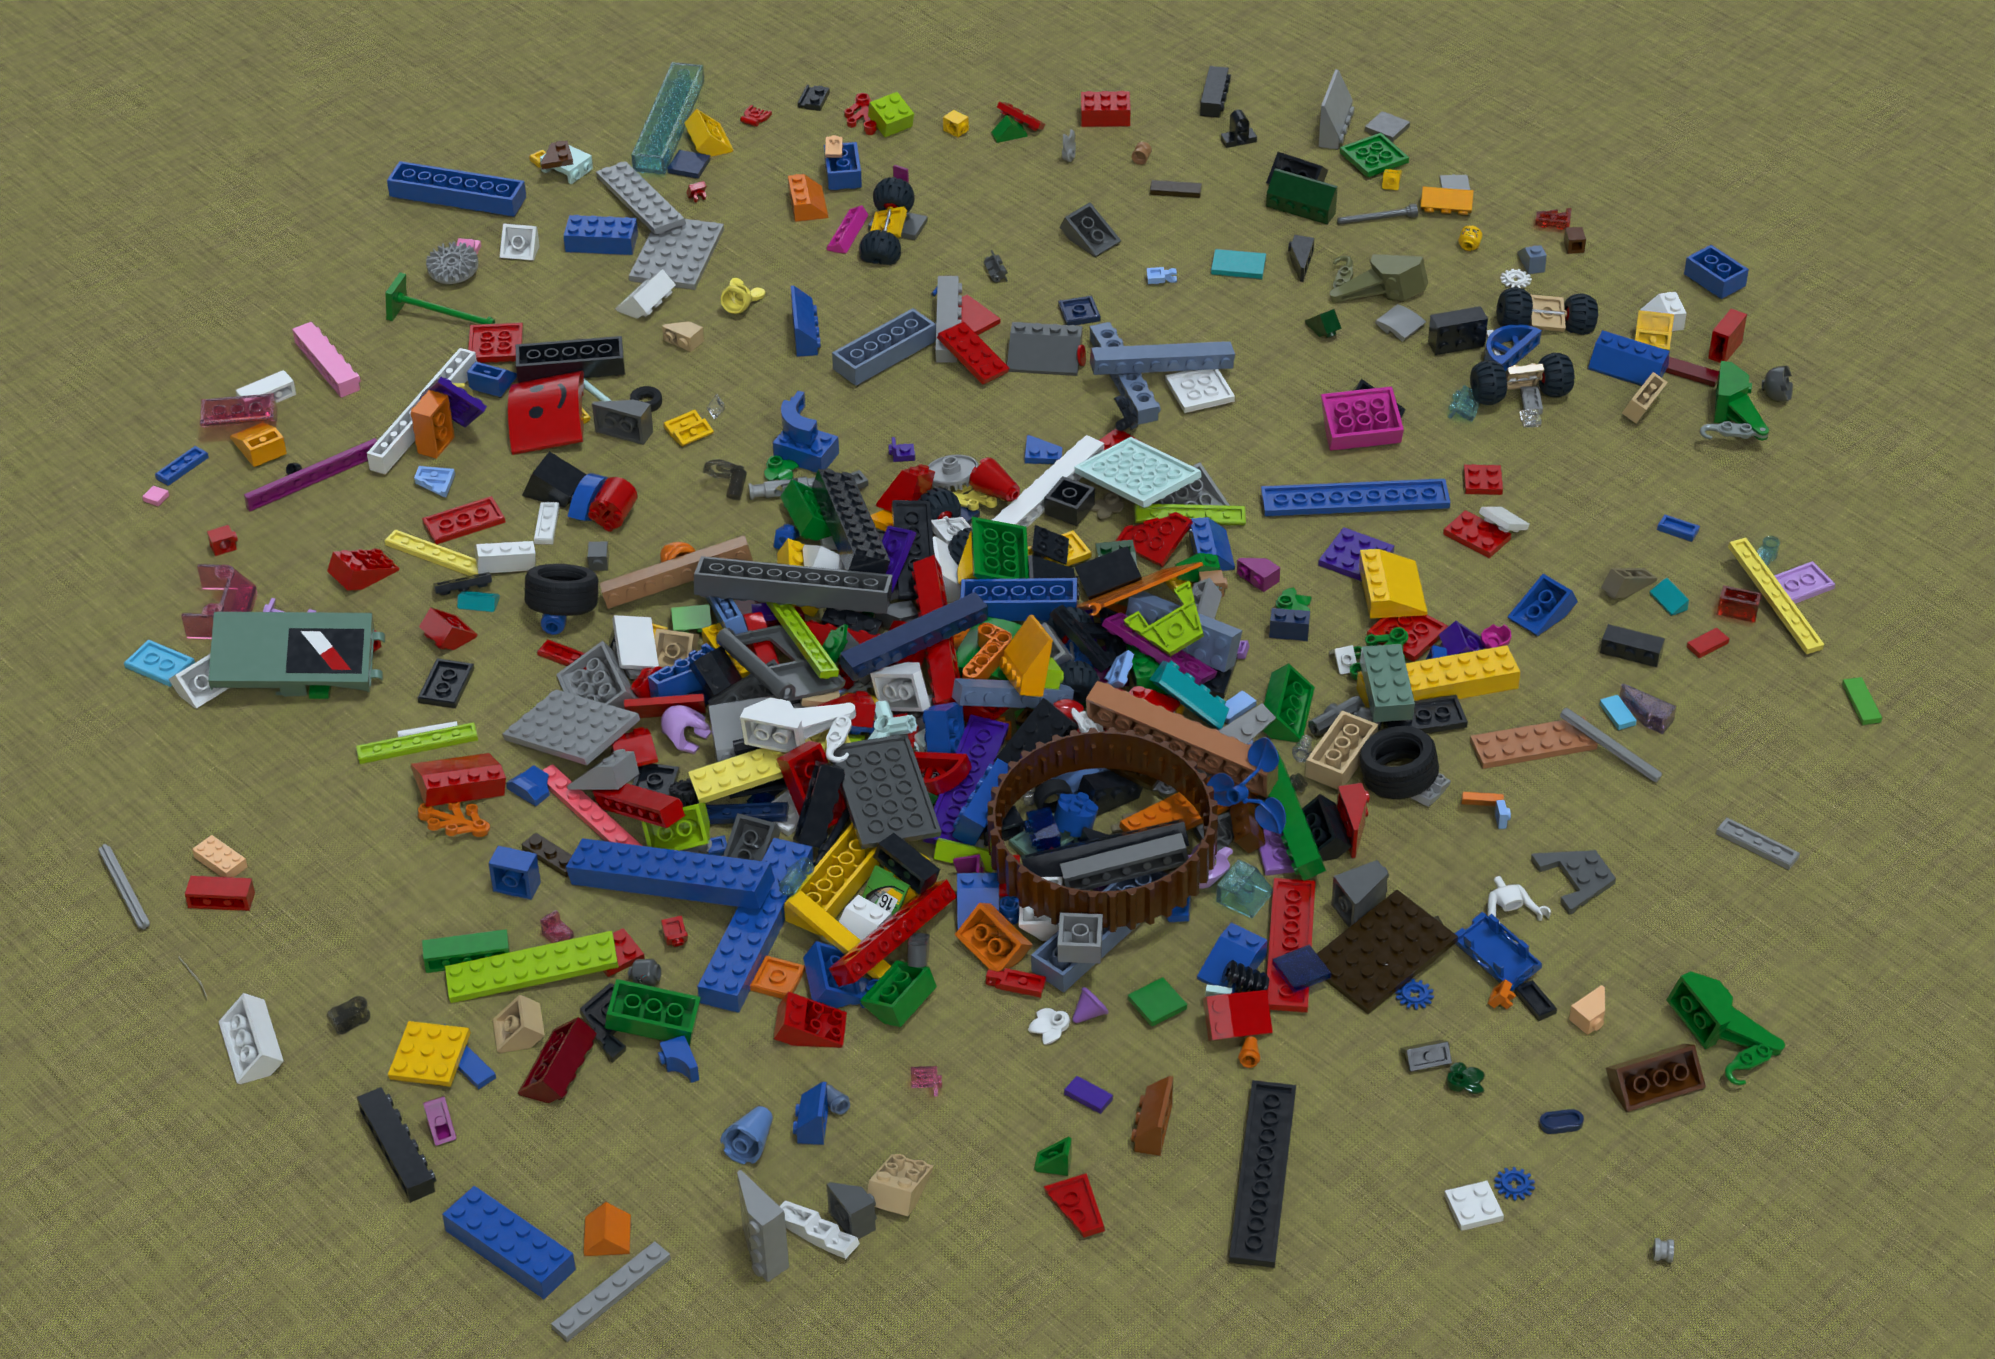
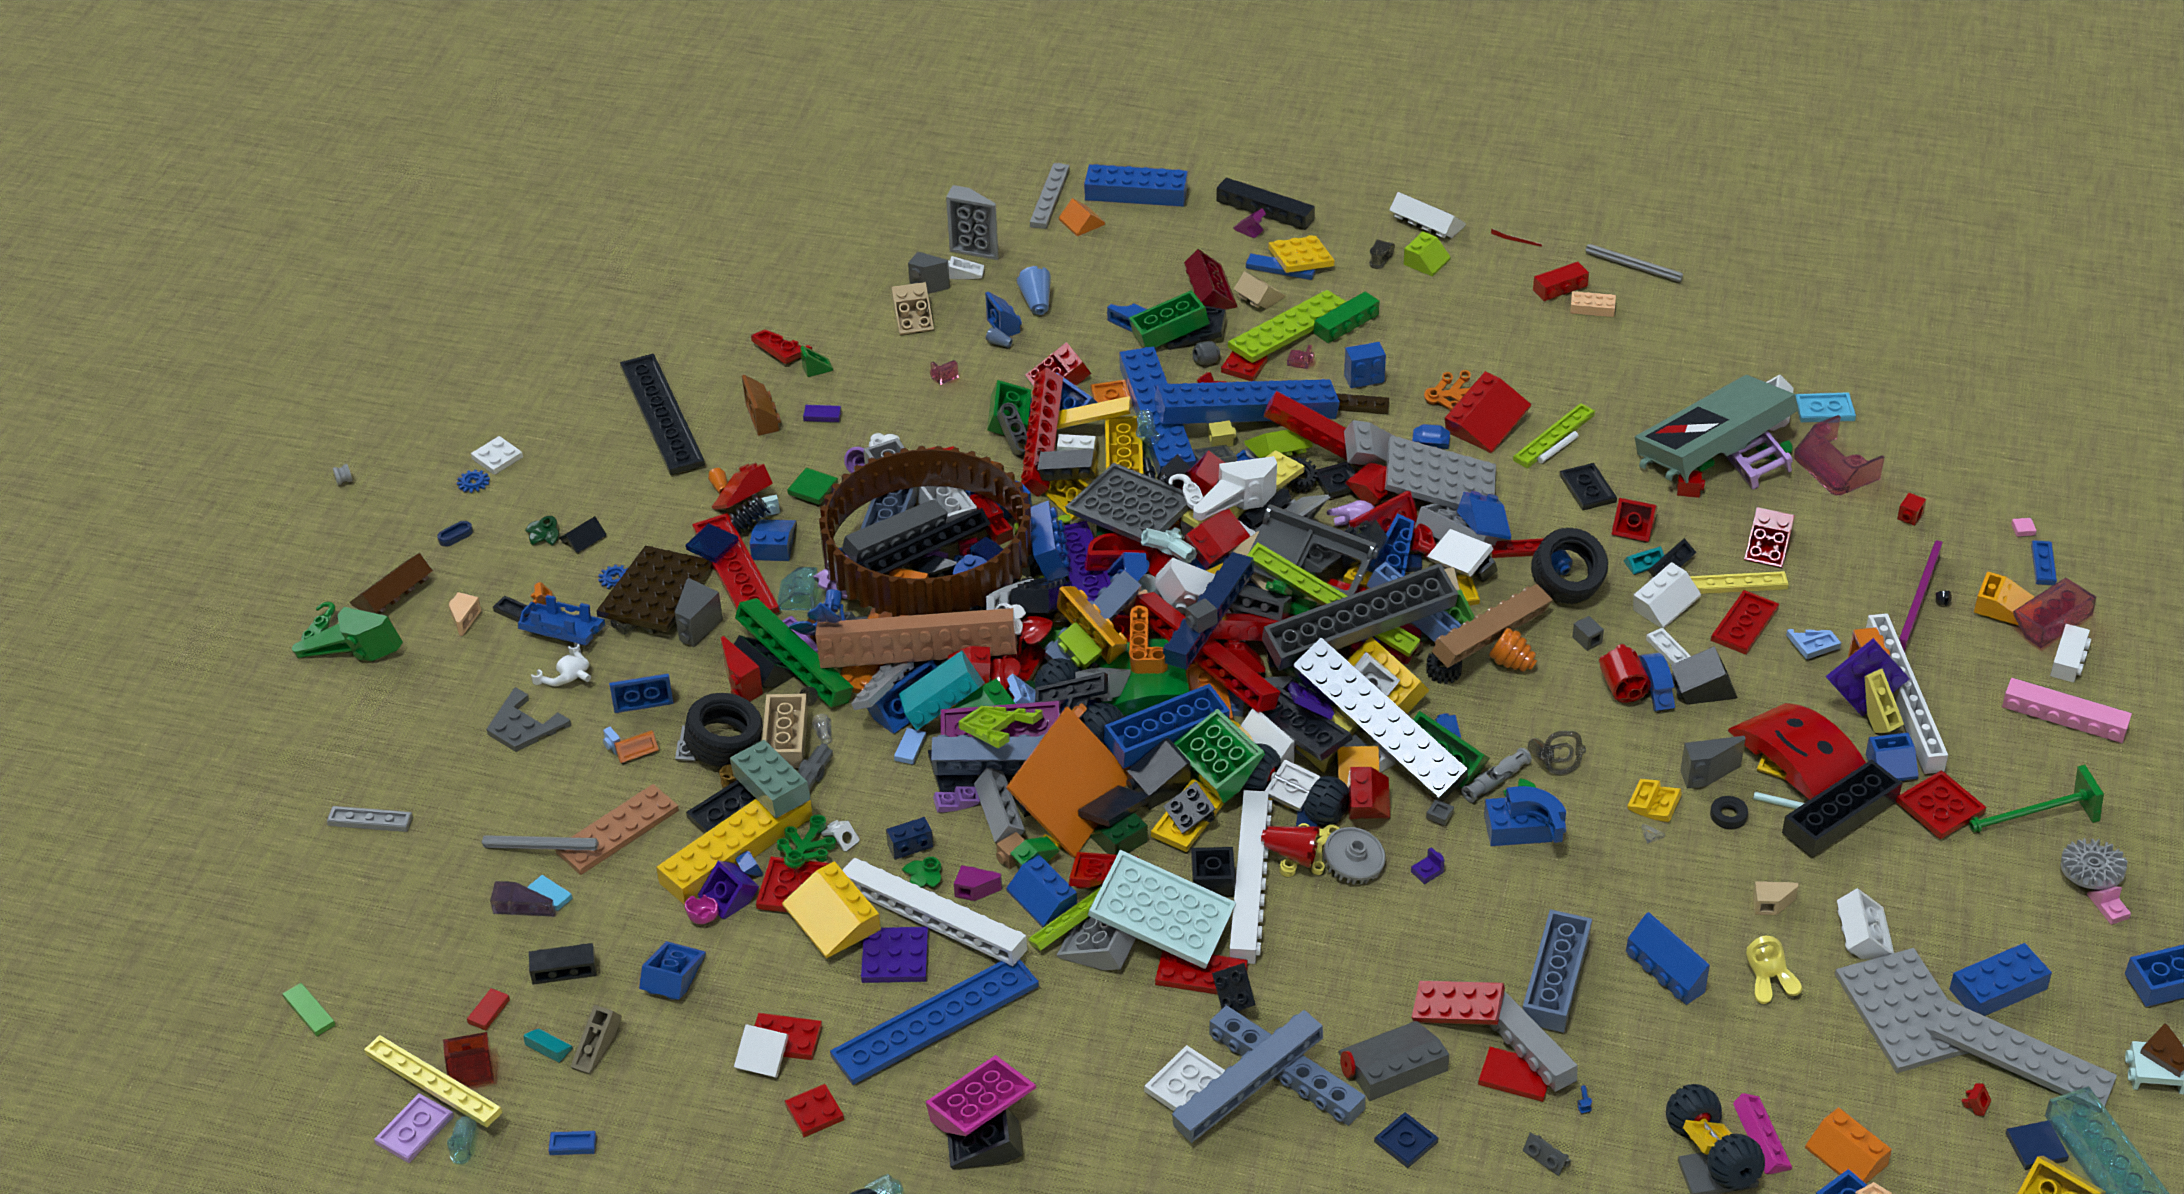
camera: 150 degrees right, 0 degrees up
(309, 994) = (1426, 254): none -> lime slope
(519, 242) = (2067, 932): white slope -> none
(578, 668) = (1484, 514): none -> blue slope
(937, 606) = (1201, 615): none -> dark grey brick
(1041, 451) = (1293, 933): blue wing -> none
(1289, 700) = (862, 759): green slope -> none
(1310, 560) = (937, 912): none -> white brick
(1453, 841) = (641, 693): none -> blue slope

